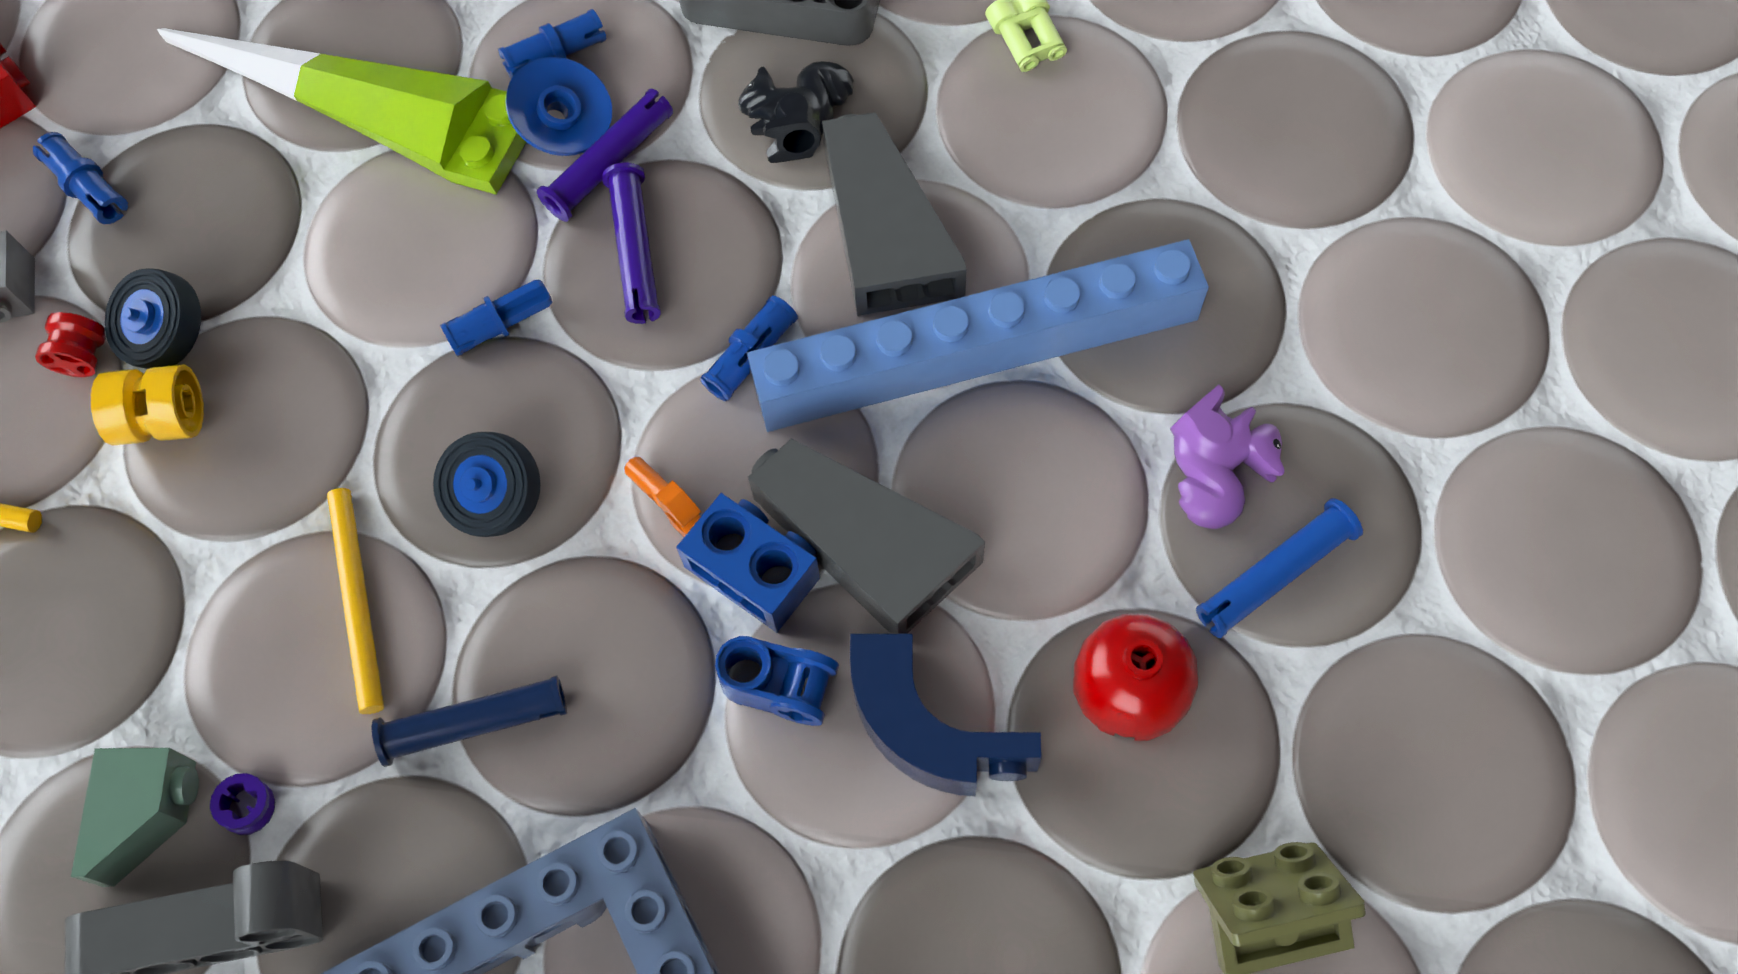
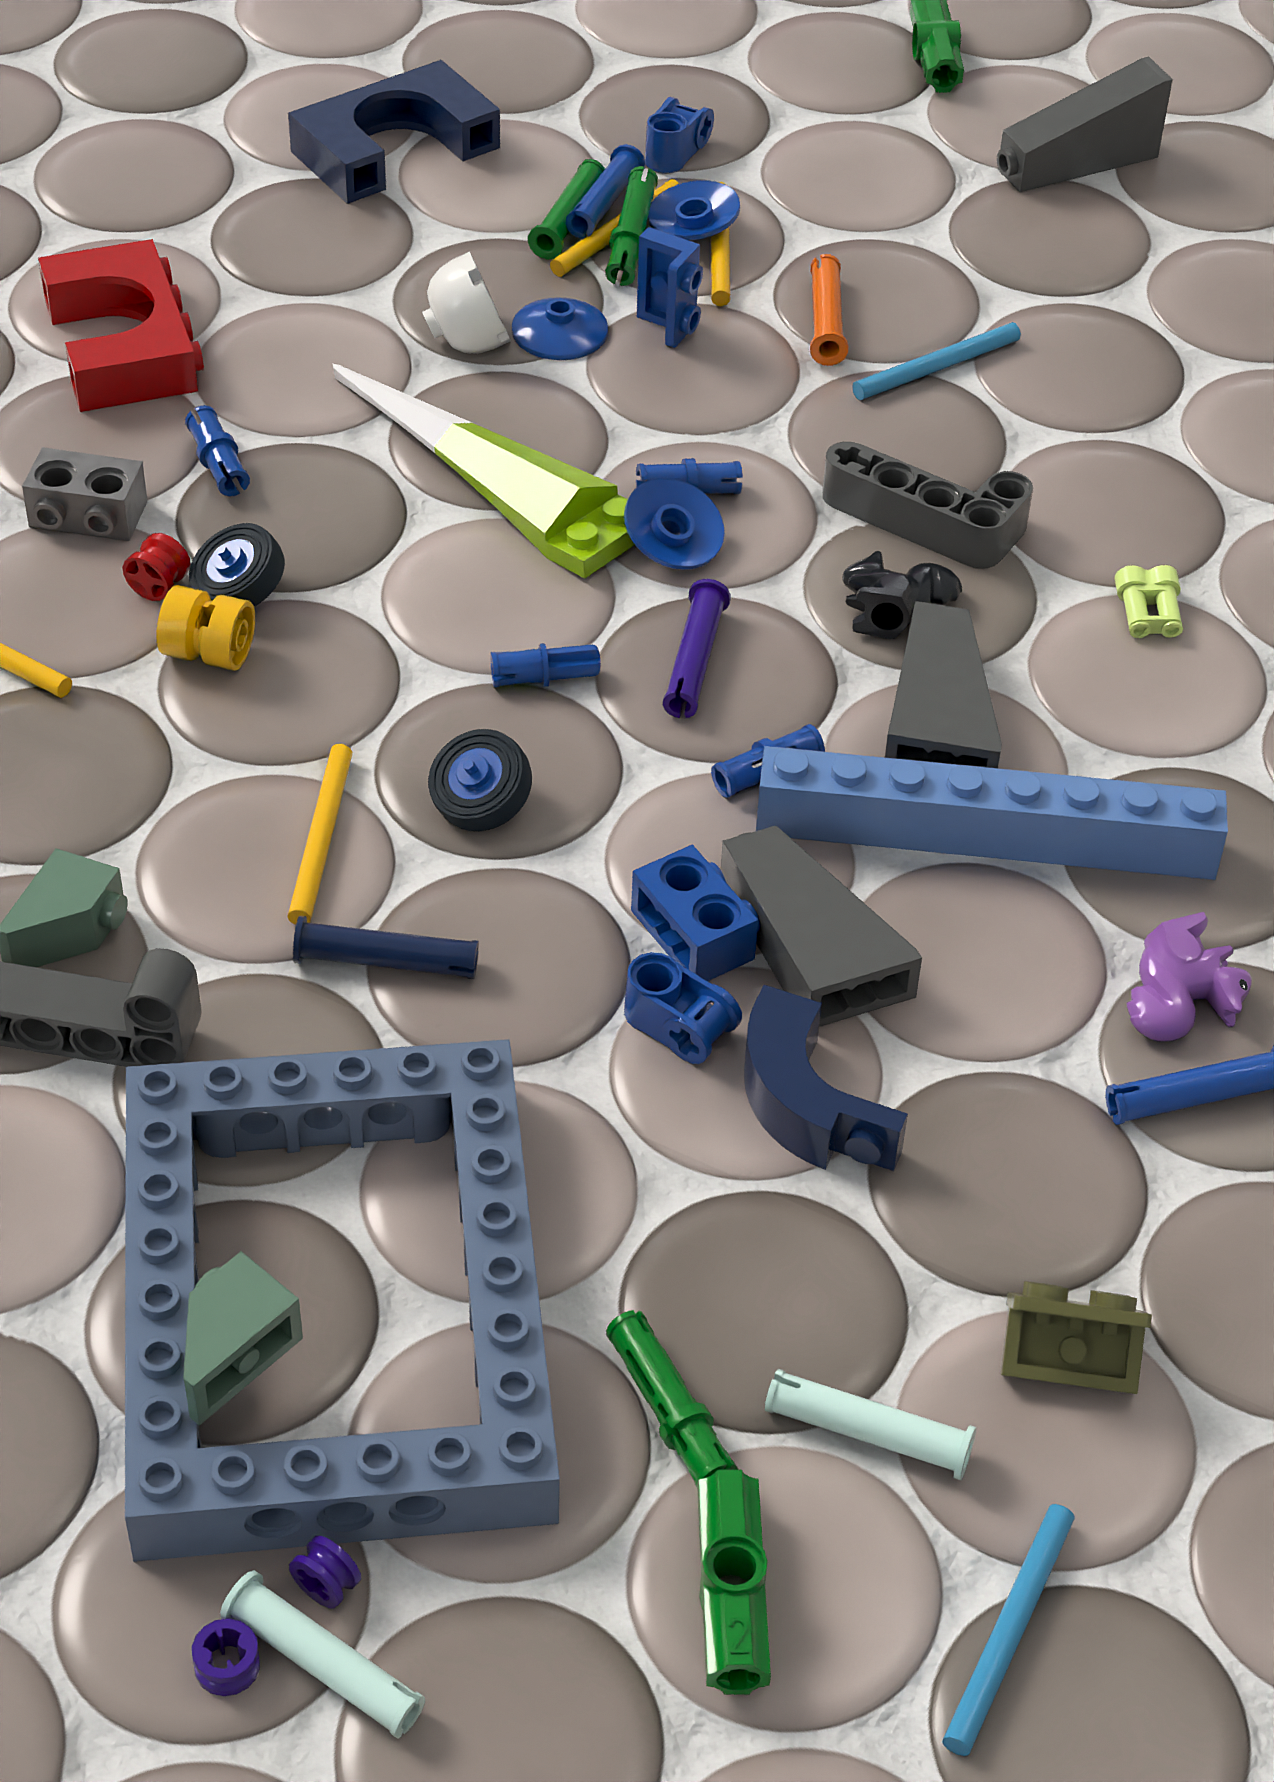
camera: 15 degrees right, 20 degrees down
(226, 793) = (152, 932): dark purple bush -> none
(609, 149) = (676, 582): dark purple pin -> none
(669, 497) = (641, 840): orange bar -> none
(1133, 699) = (1022, 1120): red cylinder -> none

